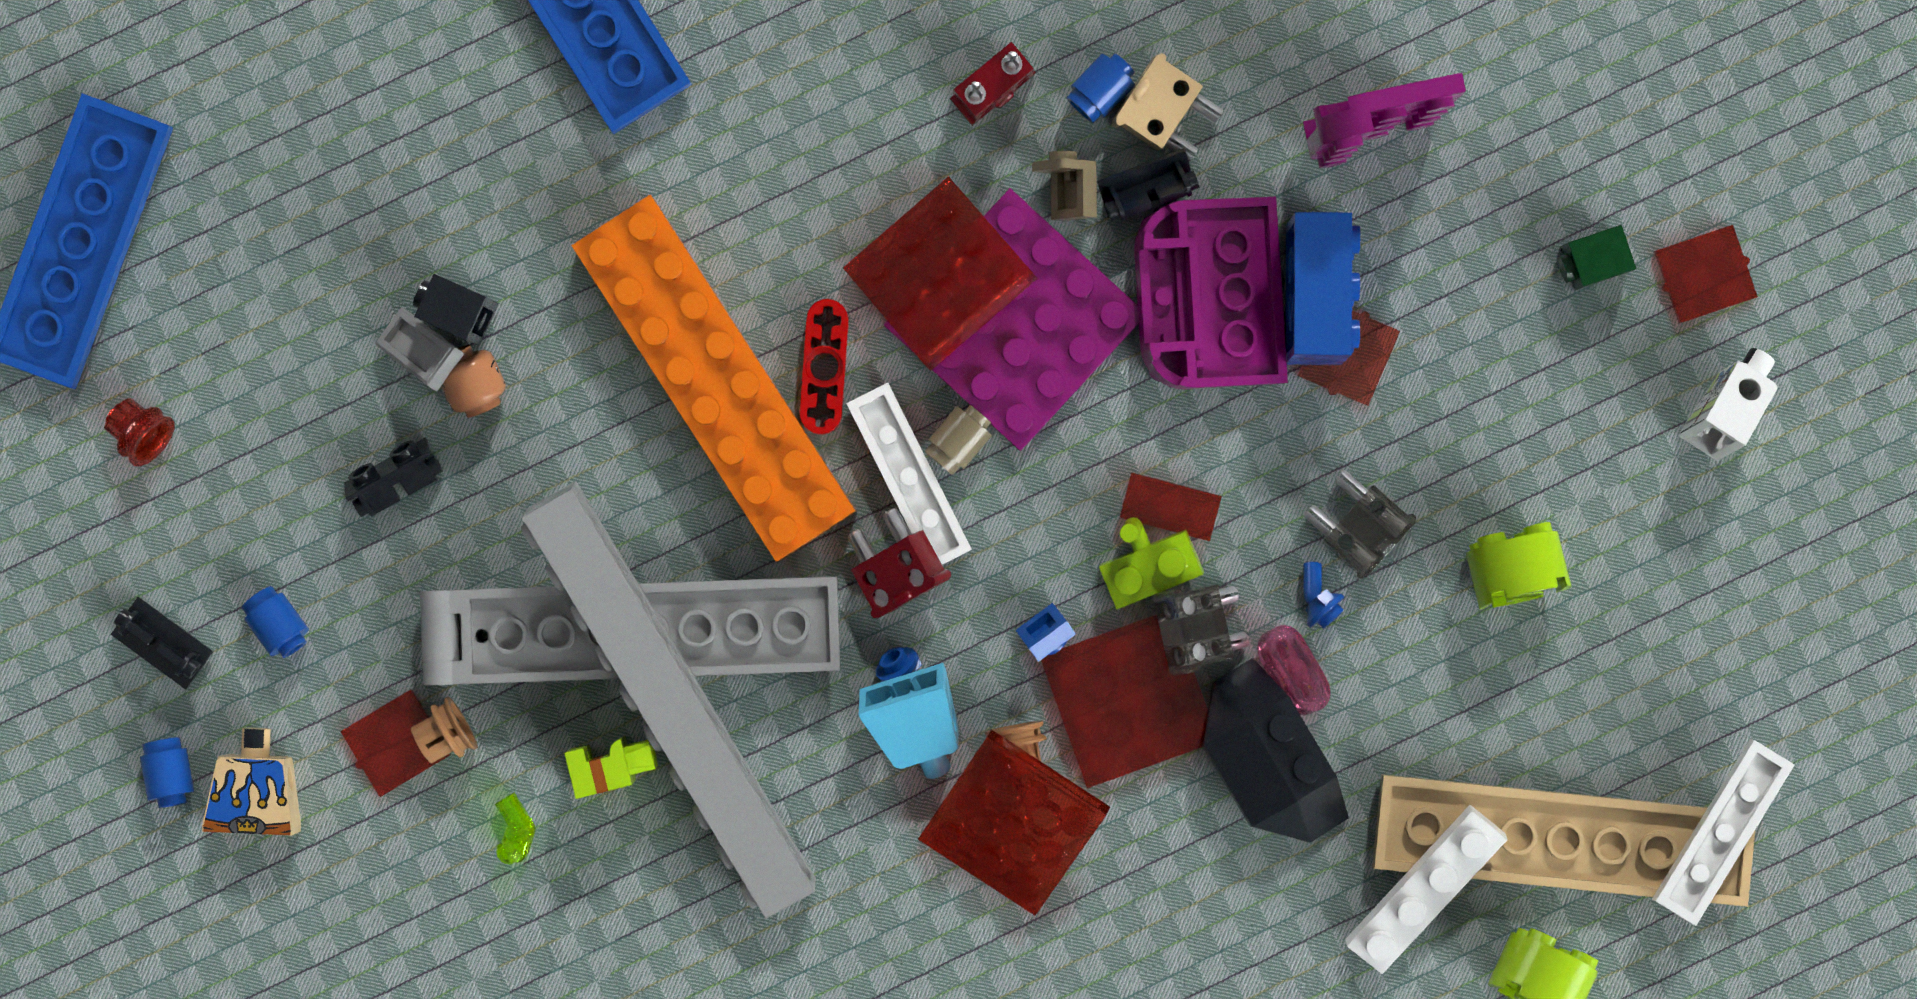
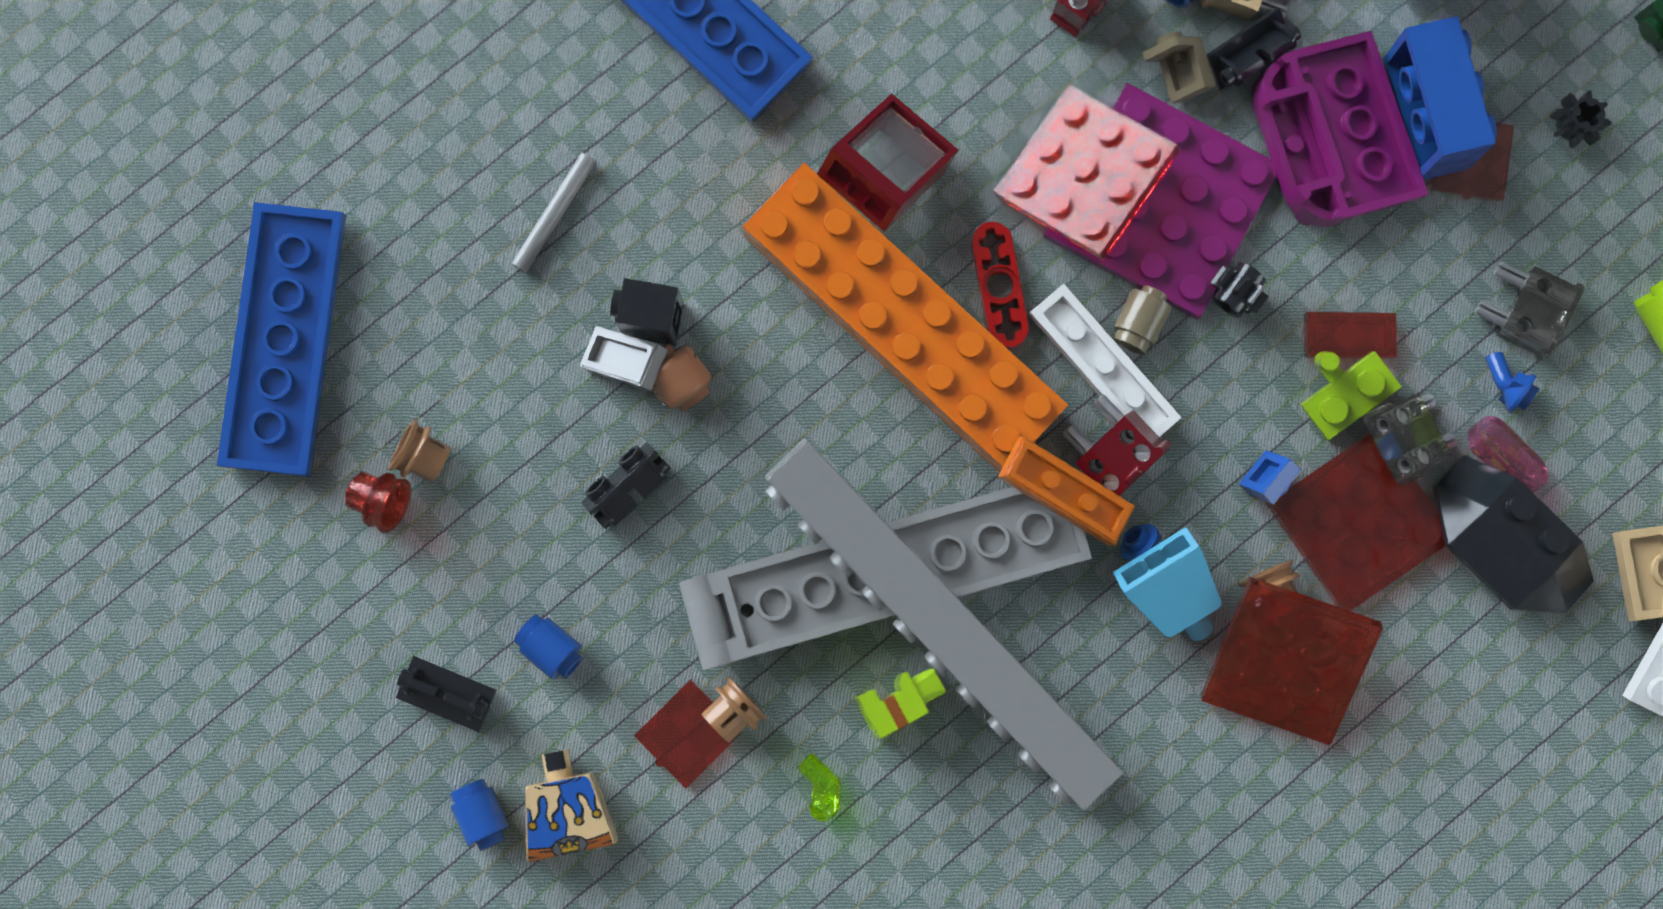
camera: 15 degrees left, 5 degrees down
(190, 394) = (419, 453): none -> medium nougat piece
(386, 177) = (553, 212): none -> light grey bar
(737, 214) = (887, 162): none -> dark red window
(829, 598) = (1066, 491): none -> orange tile
(1065, 433) = (1239, 289): none -> black gear
(1463, 355) = (1590, 110): none -> black gear

